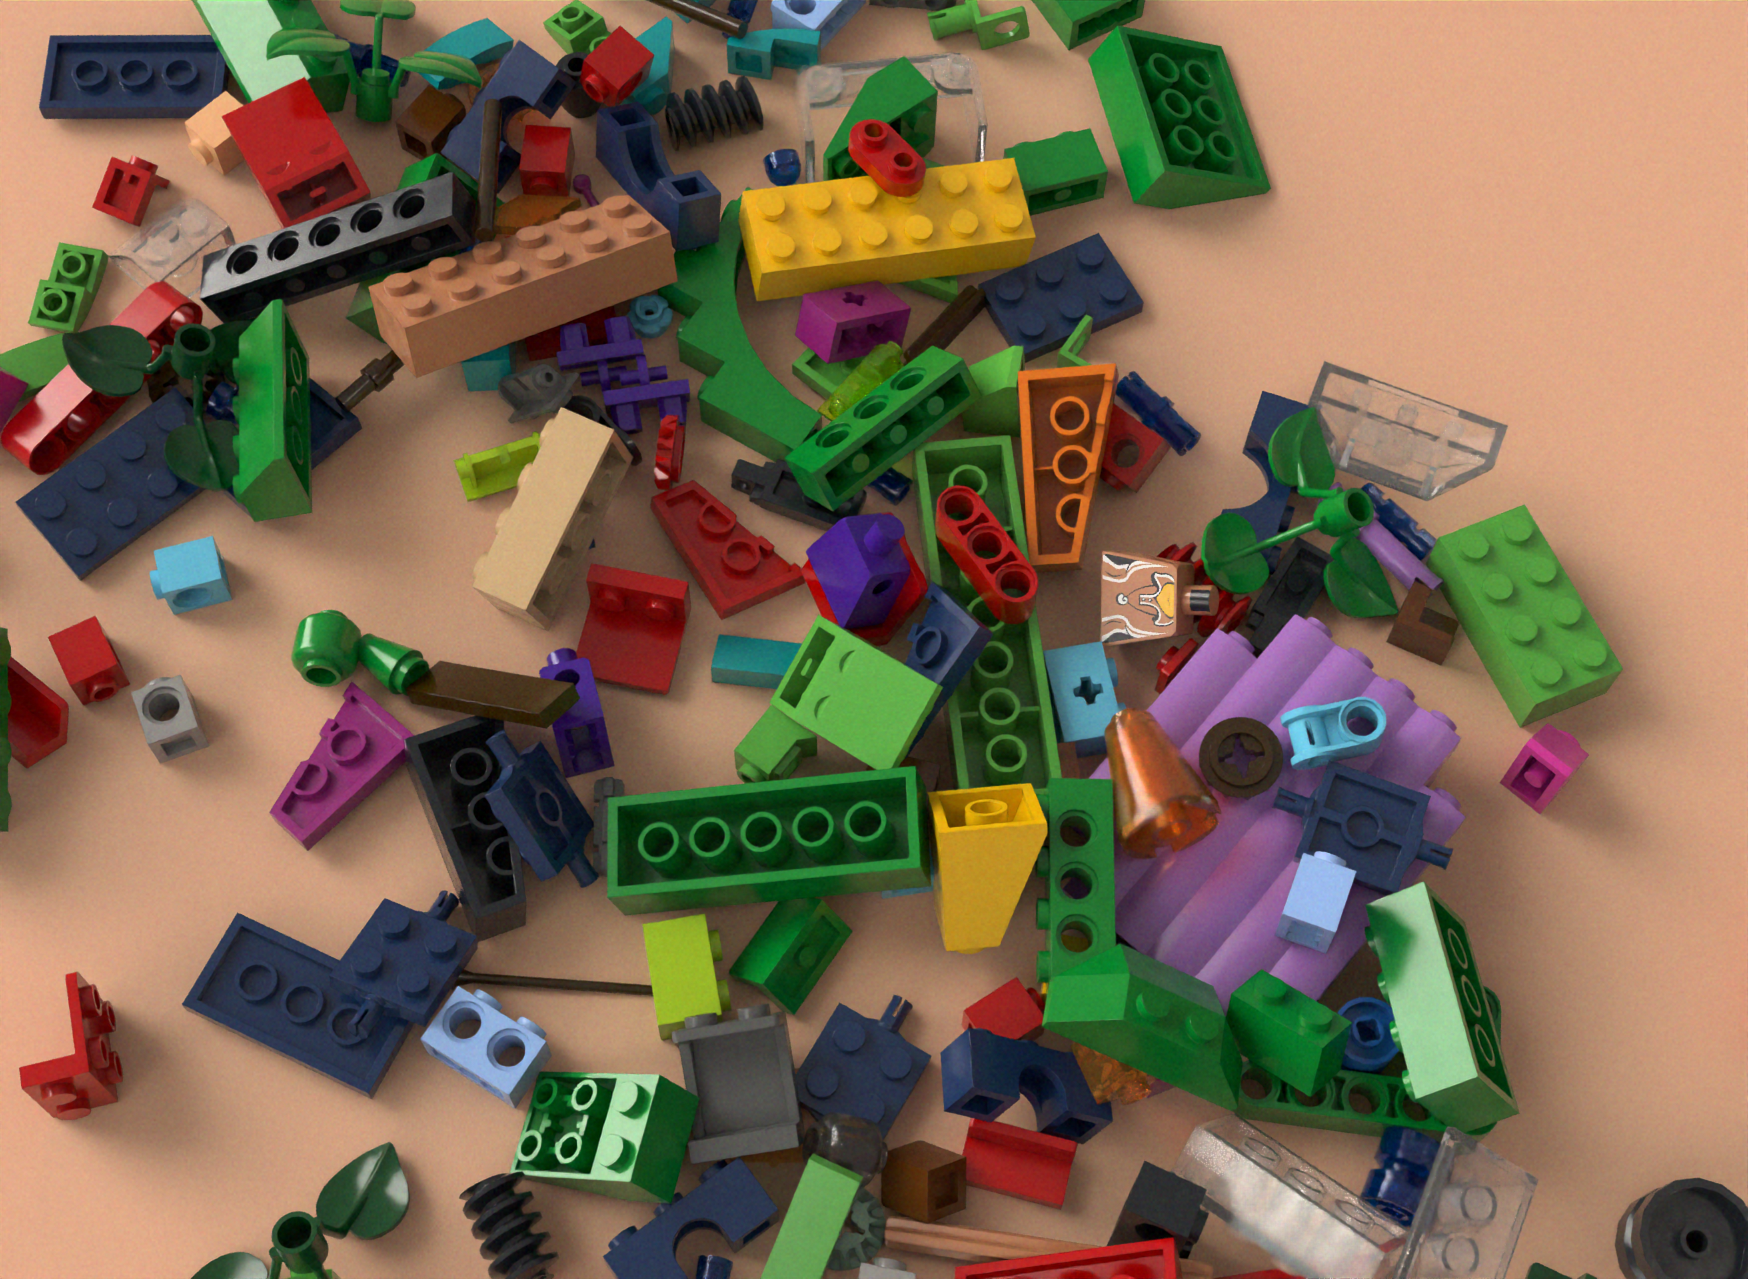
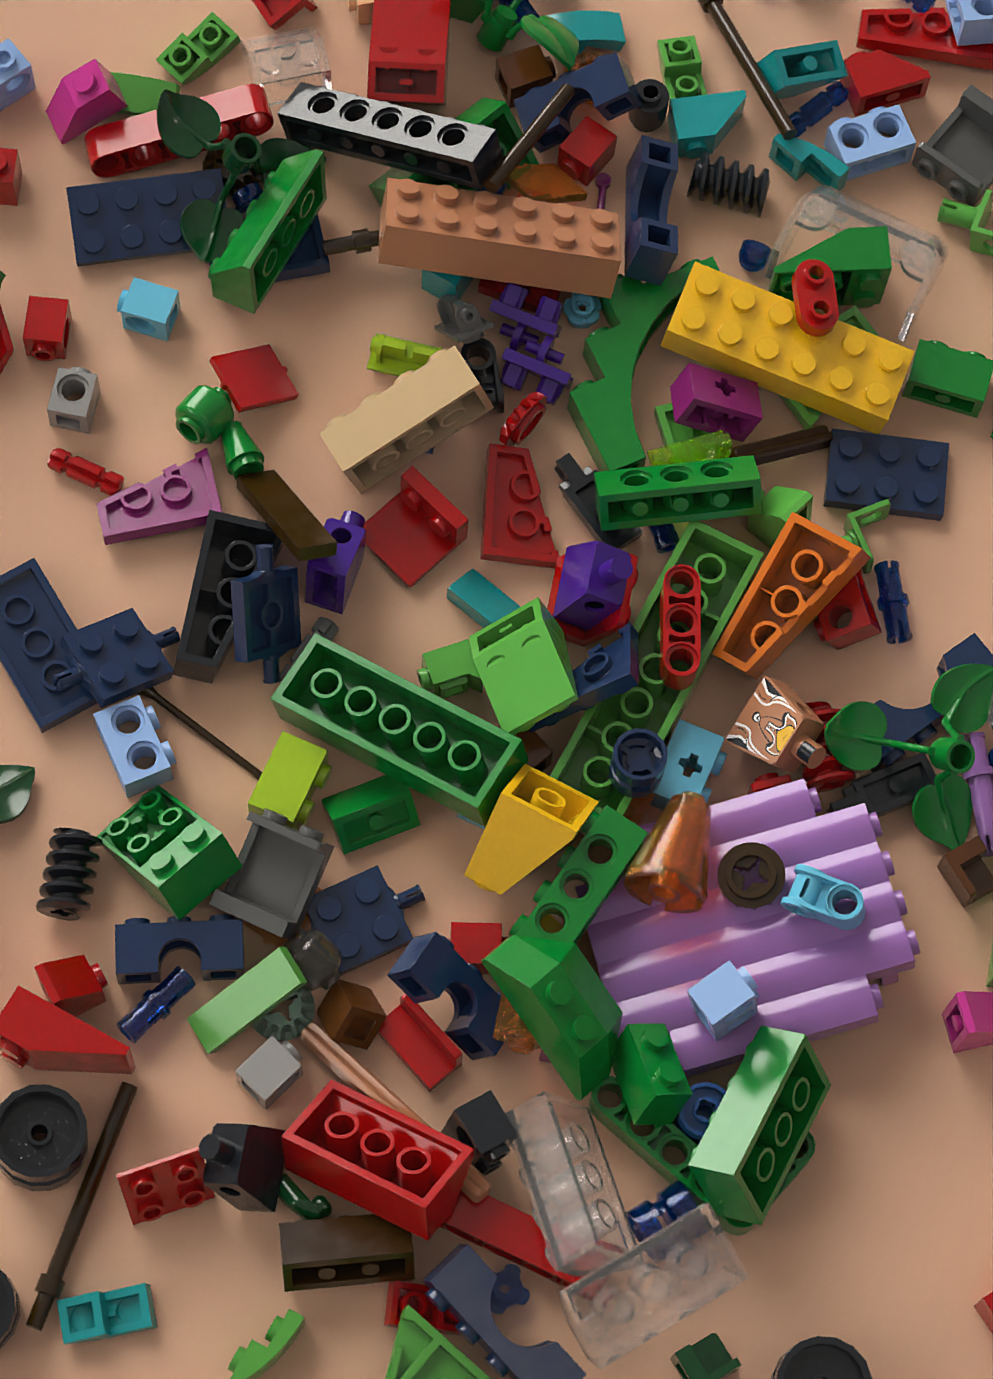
camera: 30 degrees right, 5 degrees up
(233, 787) = (85, 471): none -> red axle
(354, 579) = (253, 378): none -> red piece
(616, 68) = (674, 112): red brick -> none
(1046, 716) = (640, 754): none -> dark blue wheel
(1366, 824) = (797, 974): dark blue plate -> none

